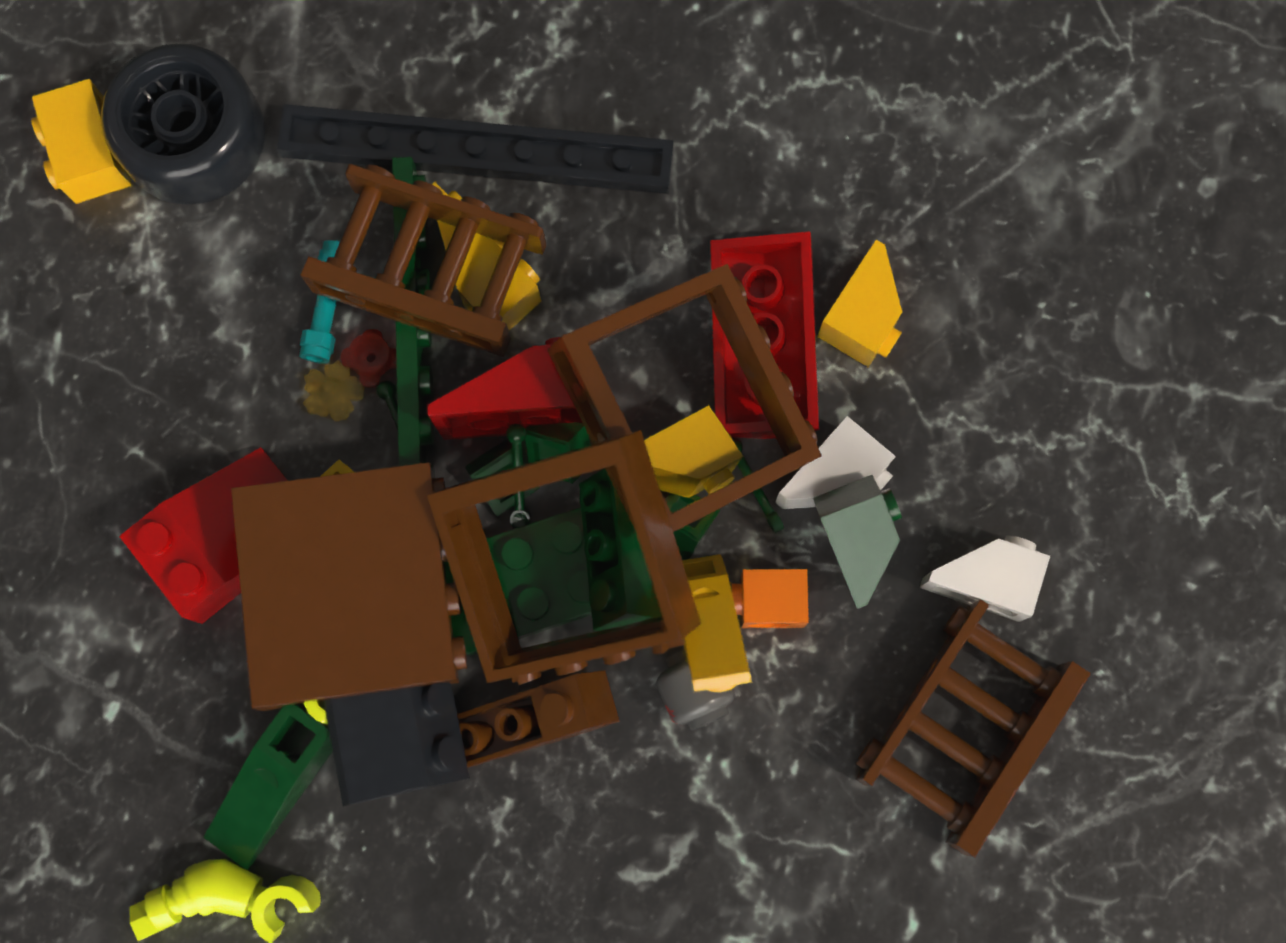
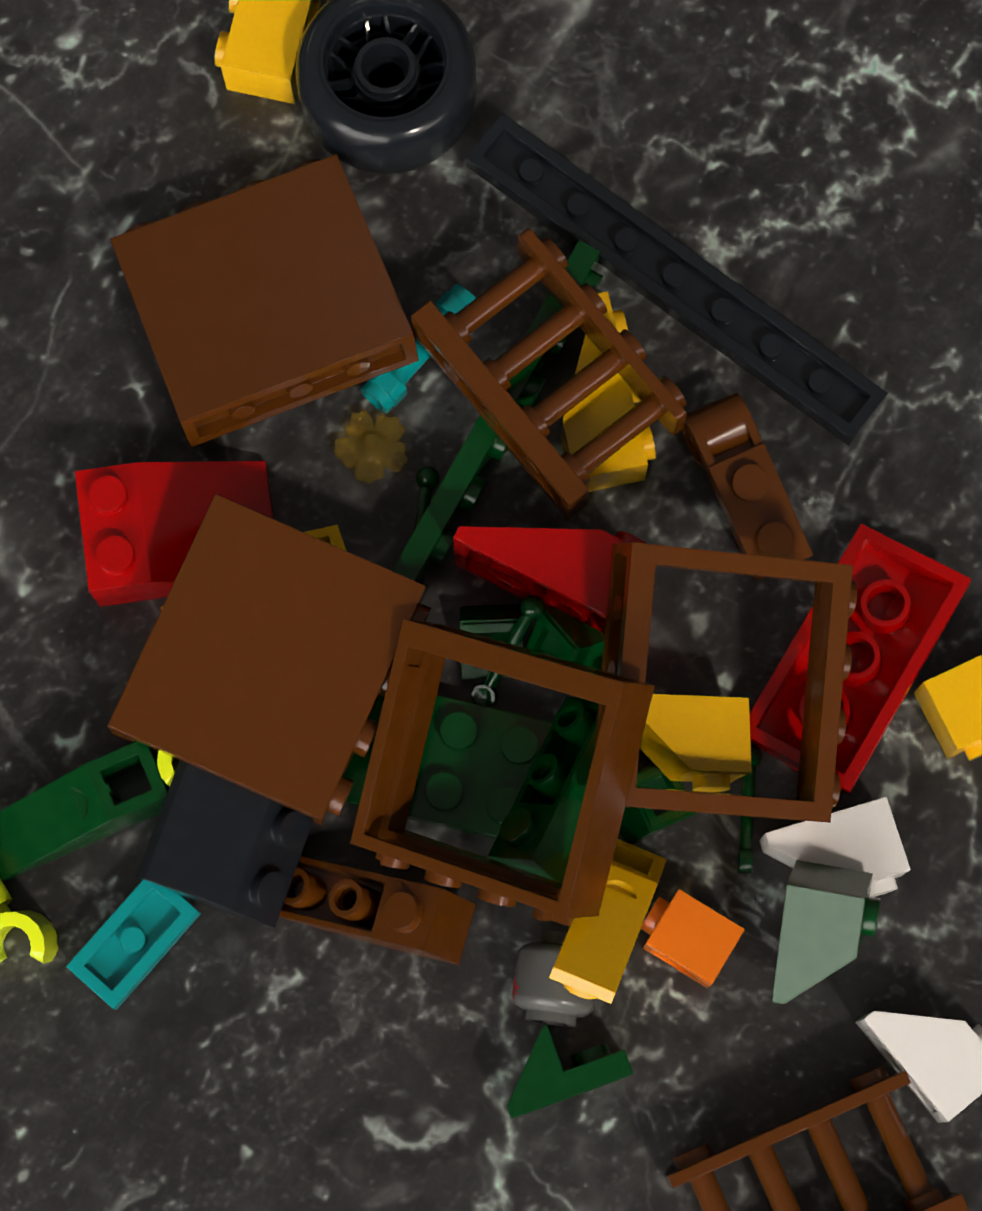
camera: 30 degrees right, 0 degrees up
(189, 332) = (264, 299): none -> reddish brown panel
(369, 343) = (432, 418): clear red plate -> none
(371, 854) = (132, 942): none -> teal plate
(608, 255) = (744, 479): none -> reddish brown plate
(734, 767) = (546, 1083): none -> dark green slope

